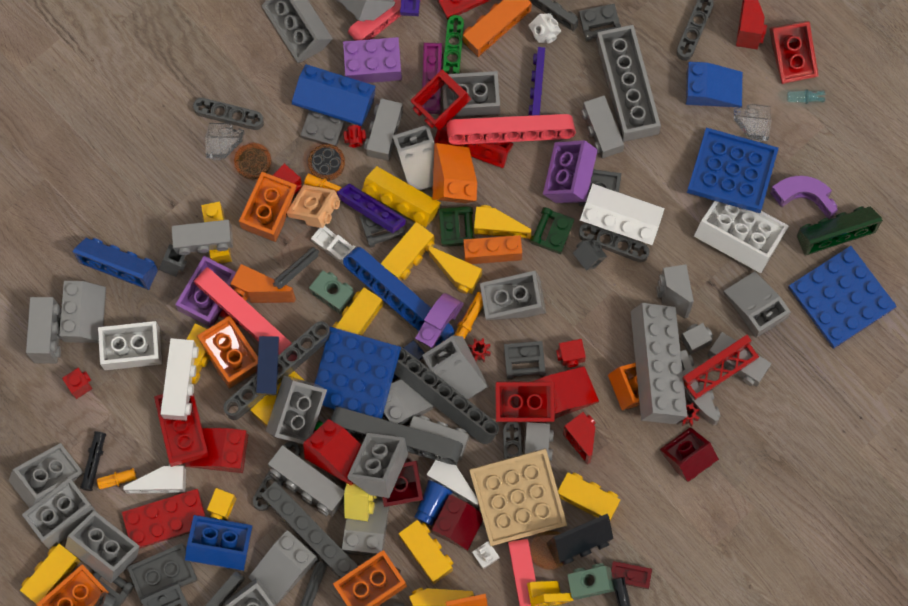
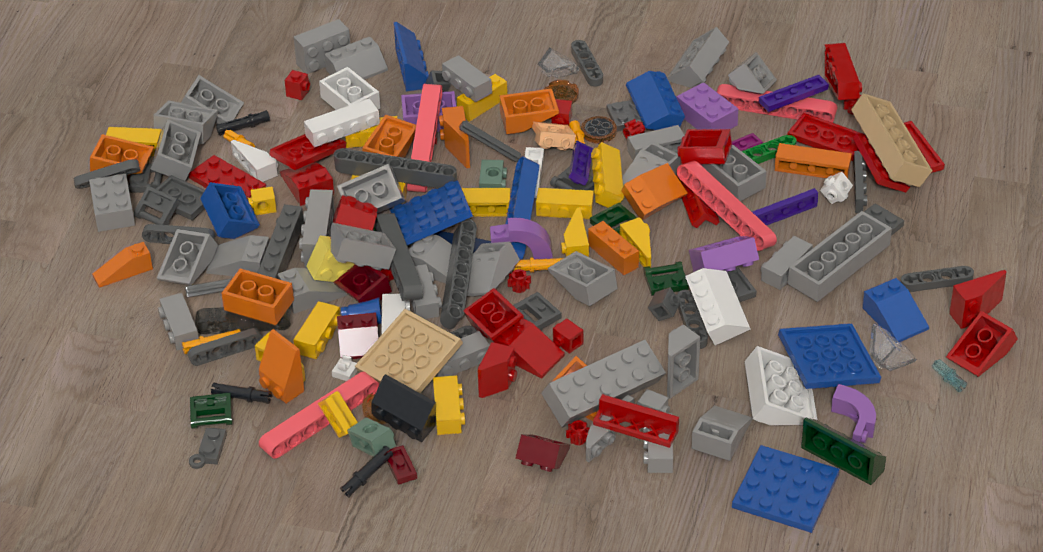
camera: 55 degrees right, 30 degrees down
(267, 365) = (391, 153): dark blue tile -> none

